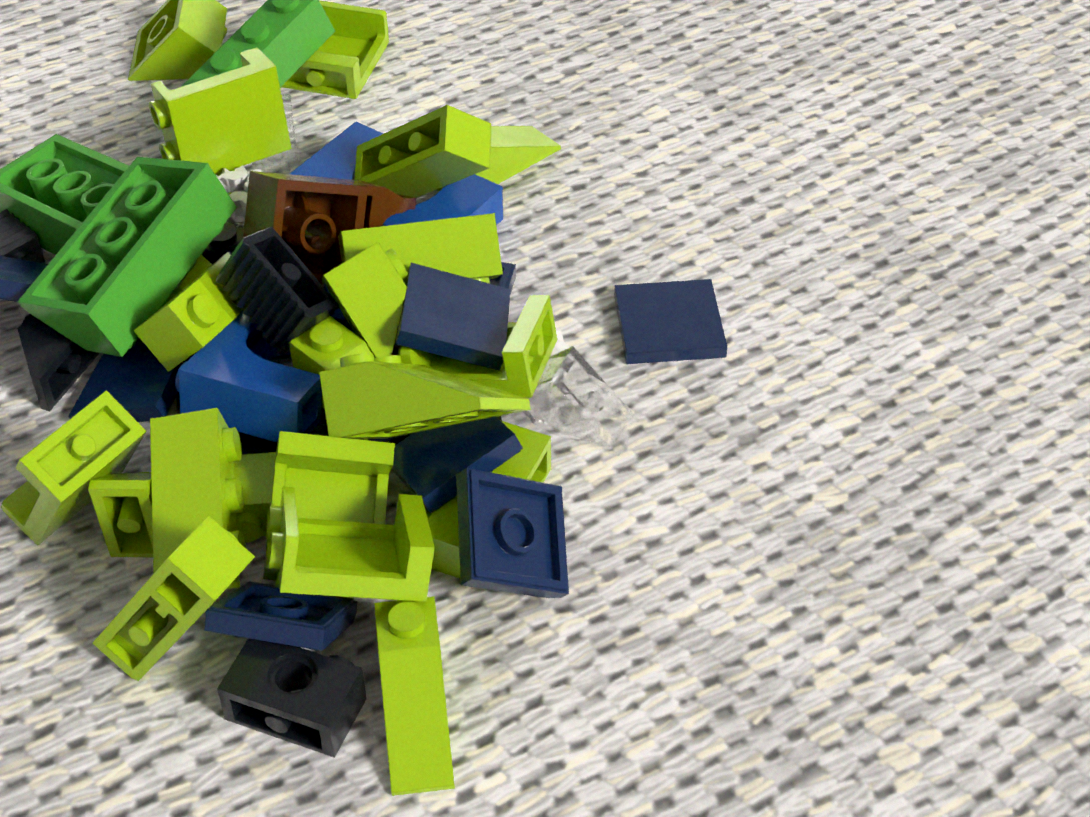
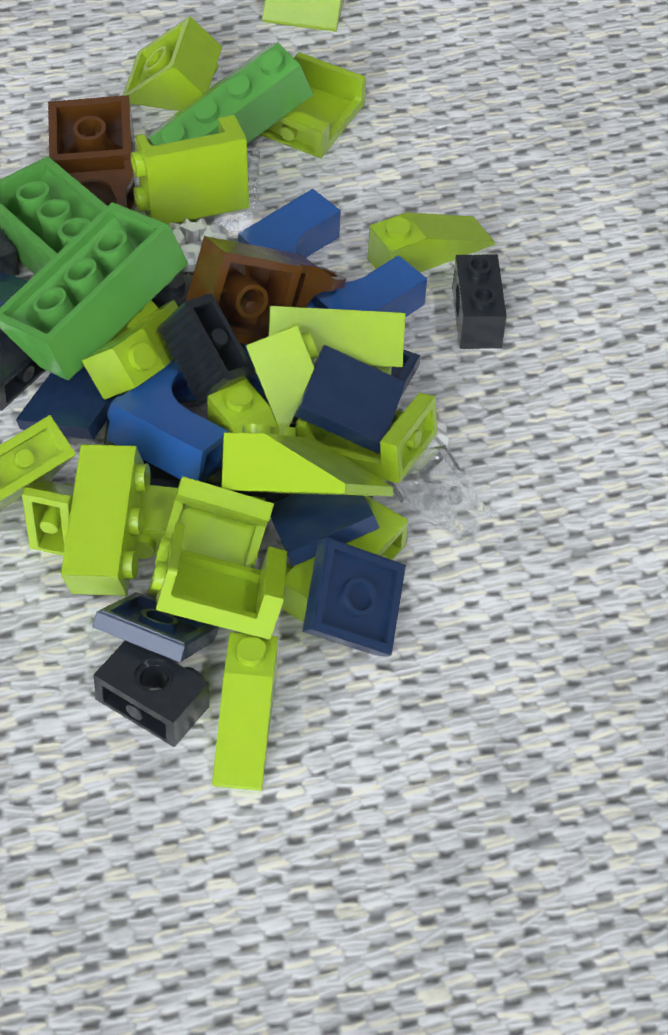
camera: 10 degrees right, 5 degrees up
(106, 112) = (95, 145): none -> reddish brown brick
(173, 598) = (73, 597): lime slope -> none
(426, 153) = (361, 239): lime brick -> none
(563, 202) = (479, 301): none -> black brick
(669, 321) = (544, 432): dark blue tile -> none

